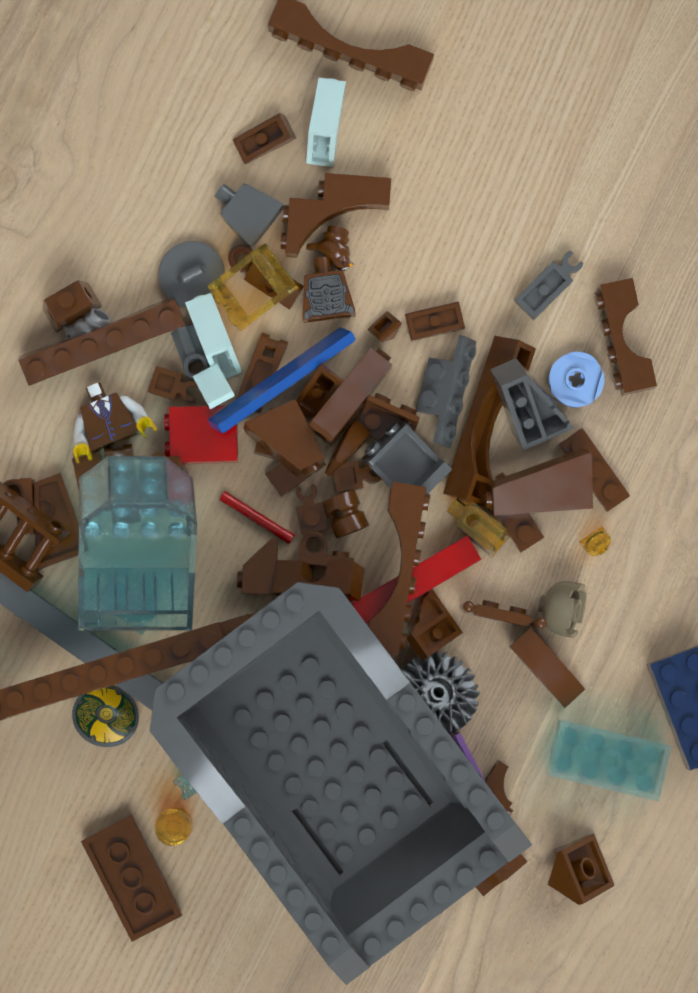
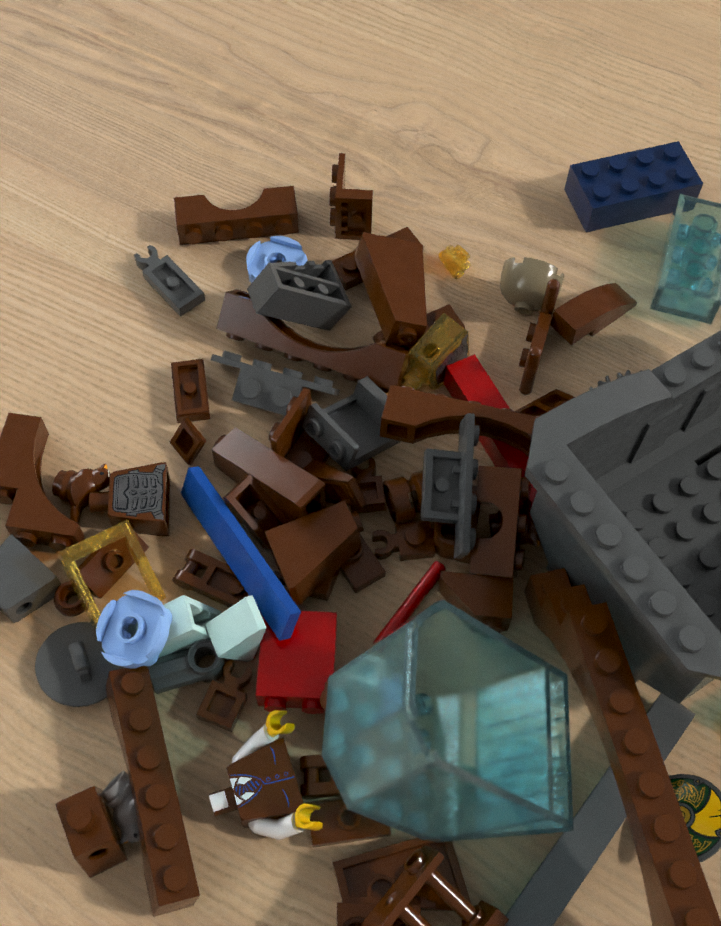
camera: 90 degrees left, 25 degrees down
(207, 326) = (150, 637): none -> light blue plate
(341, 538) = (448, 486): none -> dark grey bracket
(630, 446) = (352, 206): none -> reddish brown bracket

